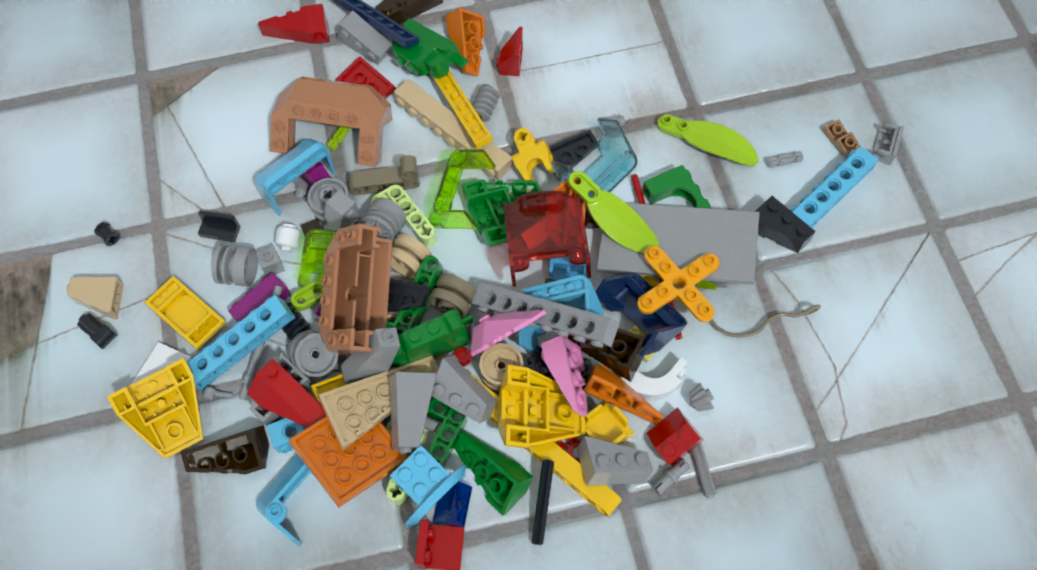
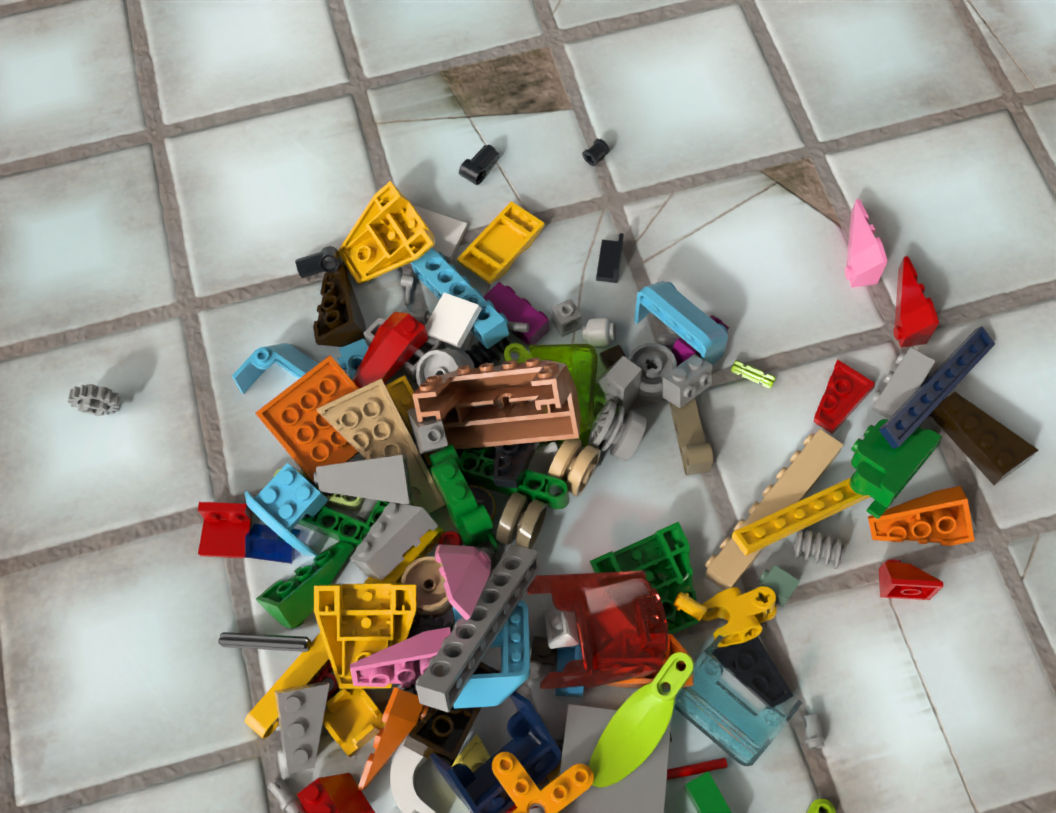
camera: 90 degrees right, 0 degrees up
(97, 294) = (520, 157): tan slope -> none
(173, 467) = (316, 262): none -> black piece
(234, 265) = (555, 279): light grey wheel -> none
(248, 50) = (865, 253): none -> bright pink wedge
(266, 339) = (452, 319): none -> white tile
(335, 105) = (775, 358): nougat wedge -> none
(345, 171) = (687, 381): none -> light grey brick
(412, 215) = (635, 464): yellowish green beam -> none
(440, 212) = (674, 507): clear neon green windscreen -> none
(507, 129) = (780, 582): none -> sand green brick
(524, 185) = (689, 606): none -> yellow pin
(536, 274) = (560, 628): none -> white slope

